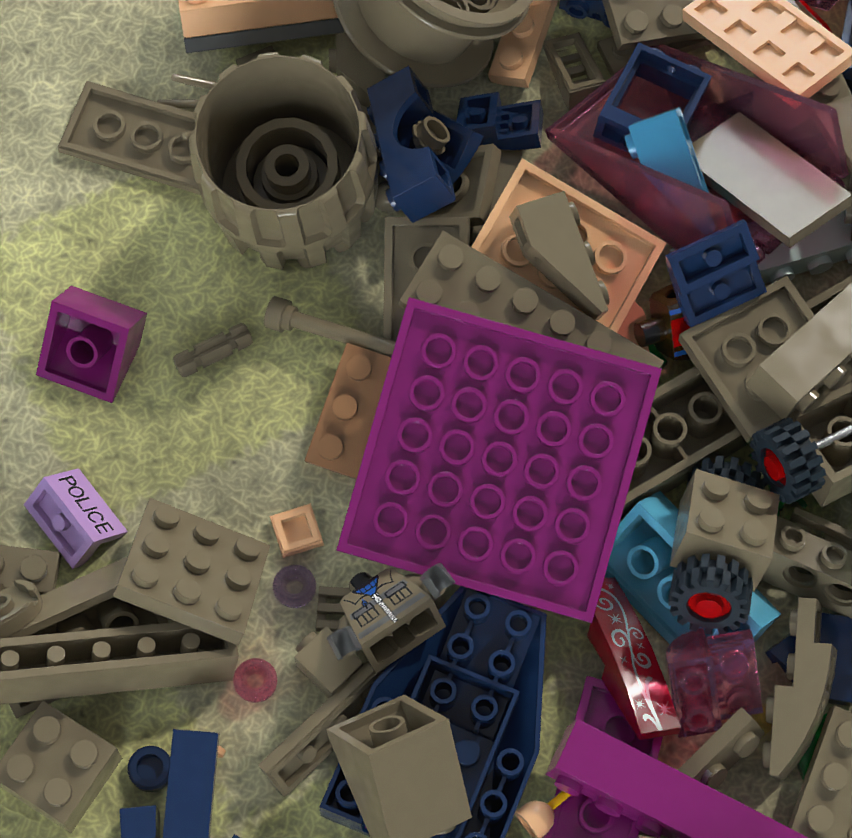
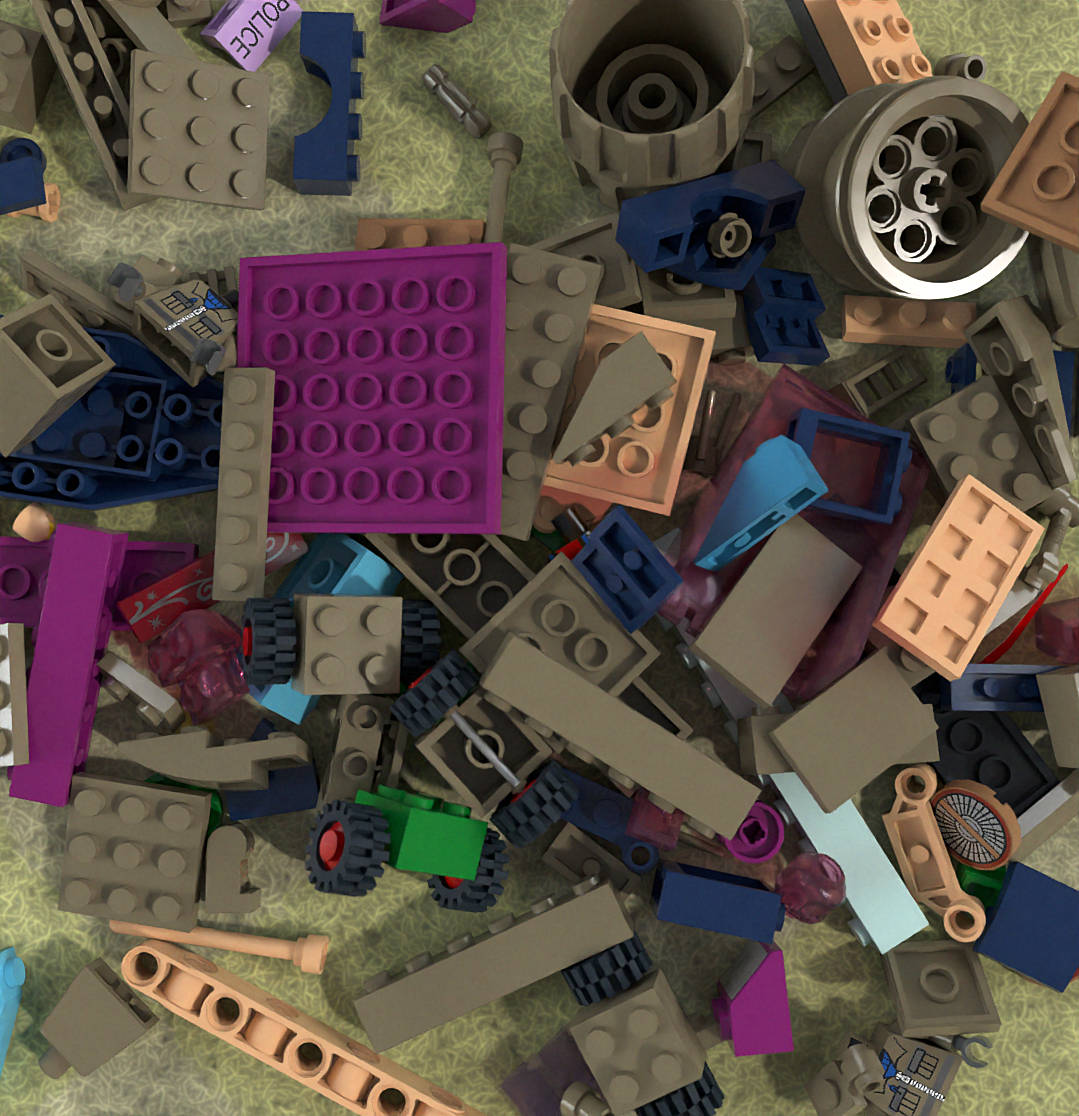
camera: 80 degrees right, 15 degrees up
(135, 445) = (325, 154): none -> dark blue arch
(251, 667) = (118, 222): clear pink plate -> none
(294, 573) = (220, 234): clear purple plate -> none
(296, 530) = (287, 230): light nougat tile -> none
(556, 595) = (243, 484): none -> dark tan plate

